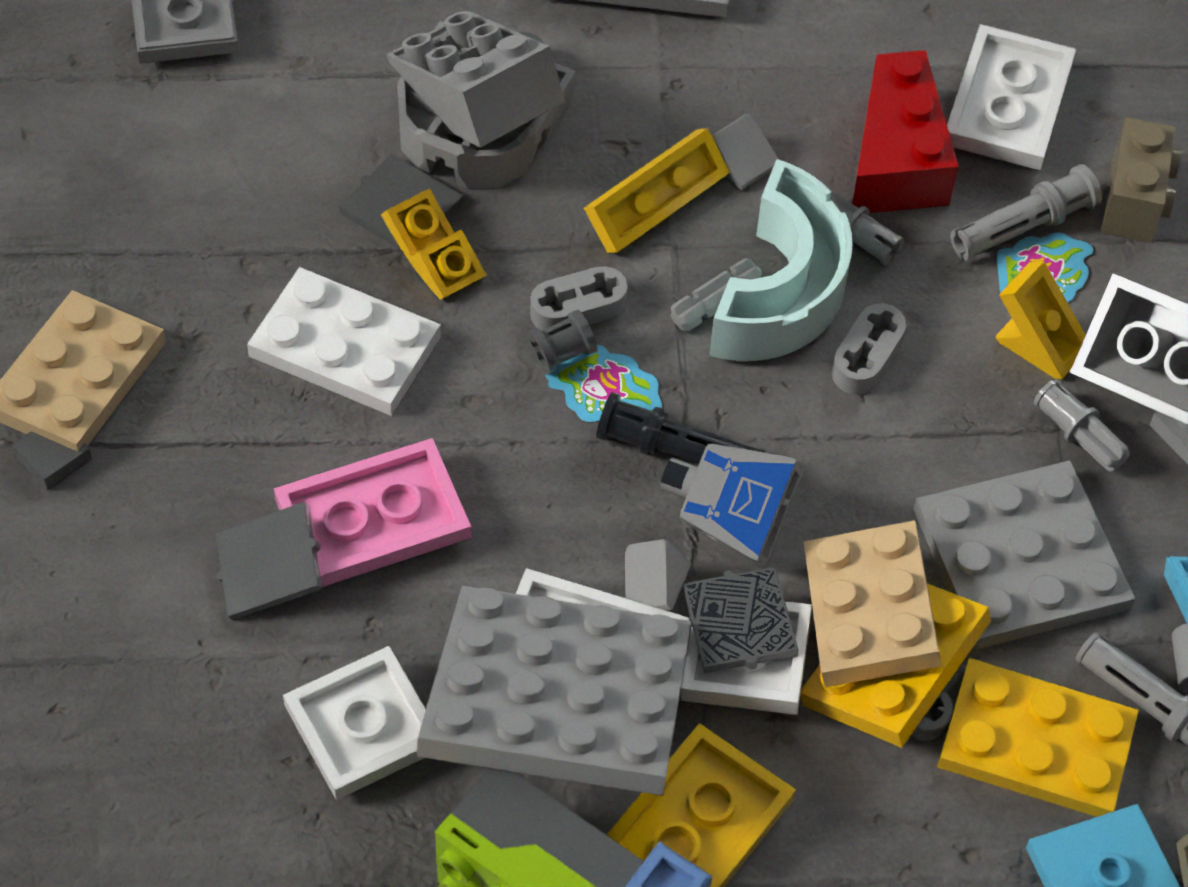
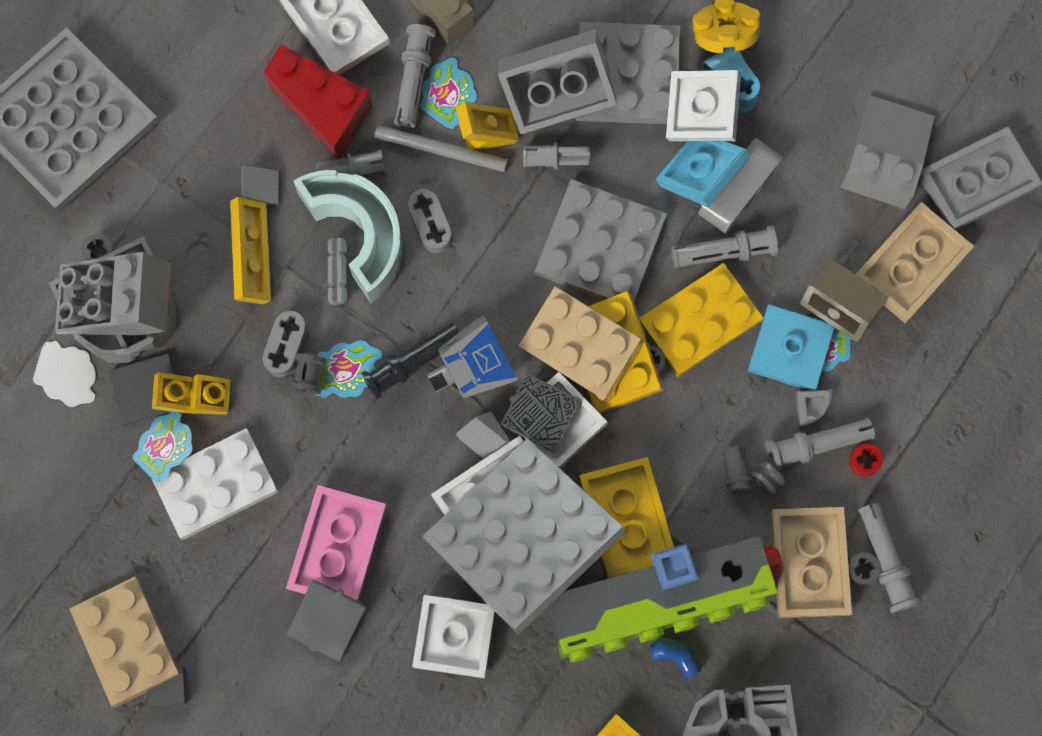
camera: 50 degrees left, 20 degrees up
(346, 258) = (164, 446): none -> sticker
(352, 120) = (65, 374): none -> white sticker
(970, 305) = (441, 148): none -> light grey bar

